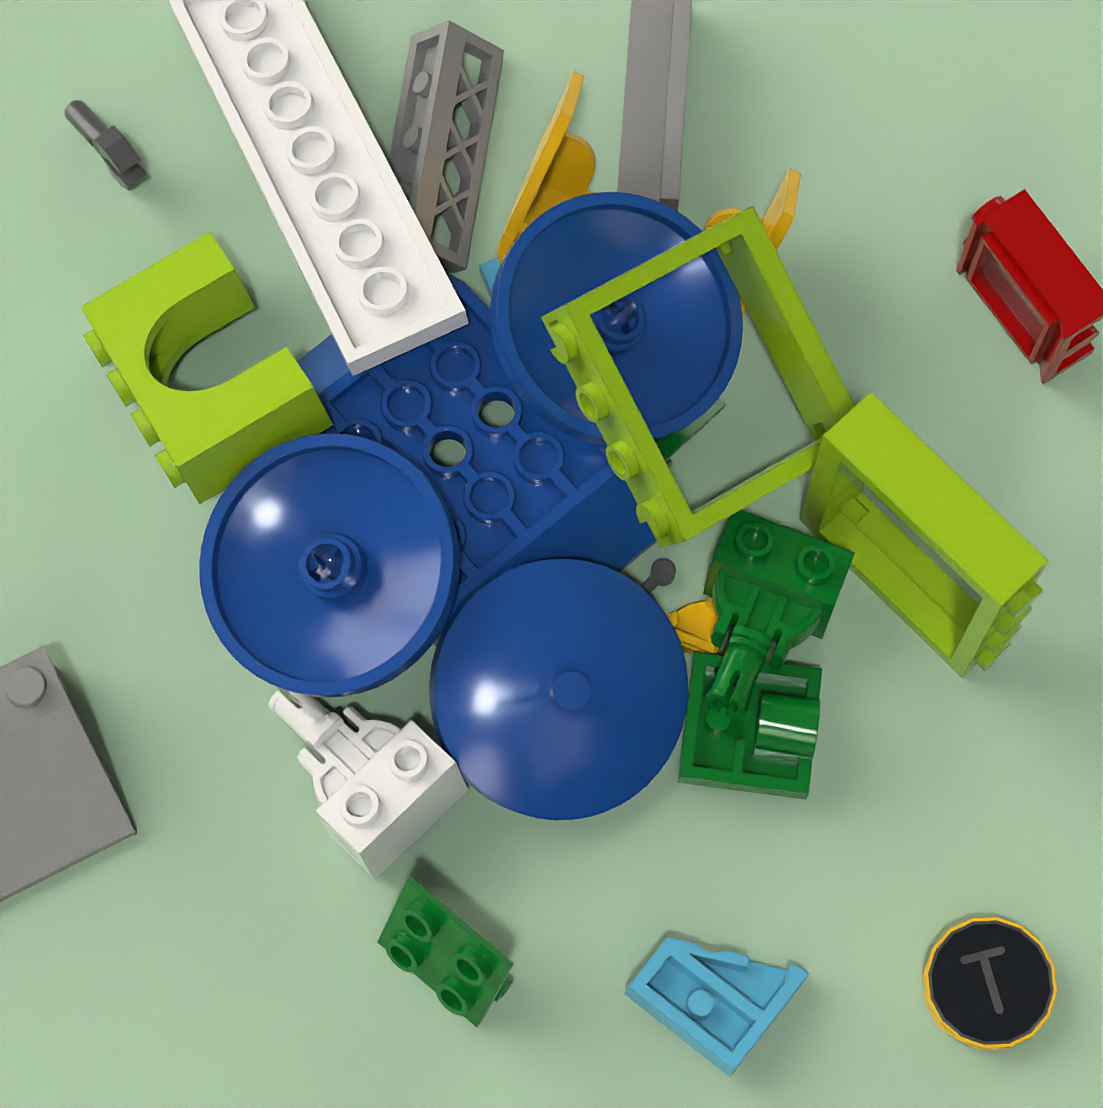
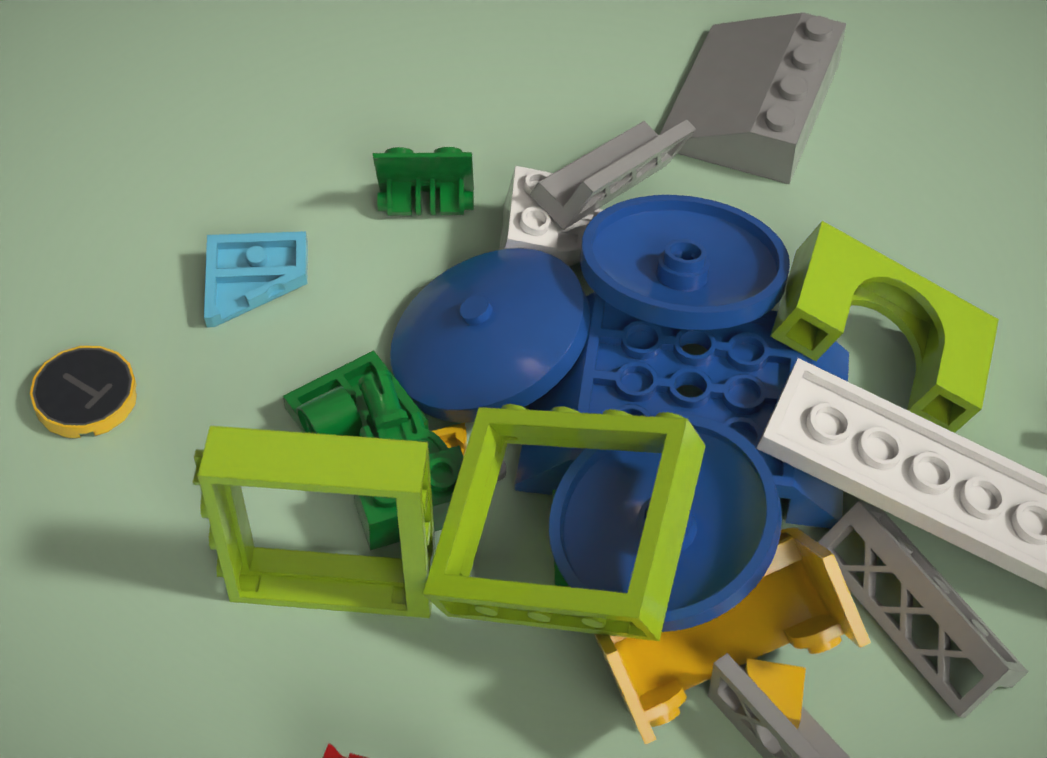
camera: 140 degrees right, 20 degrees down
(261, 778) = (608, 171): none -> light grey fence
(633, 161) = (781, 684): none -> yellow tile

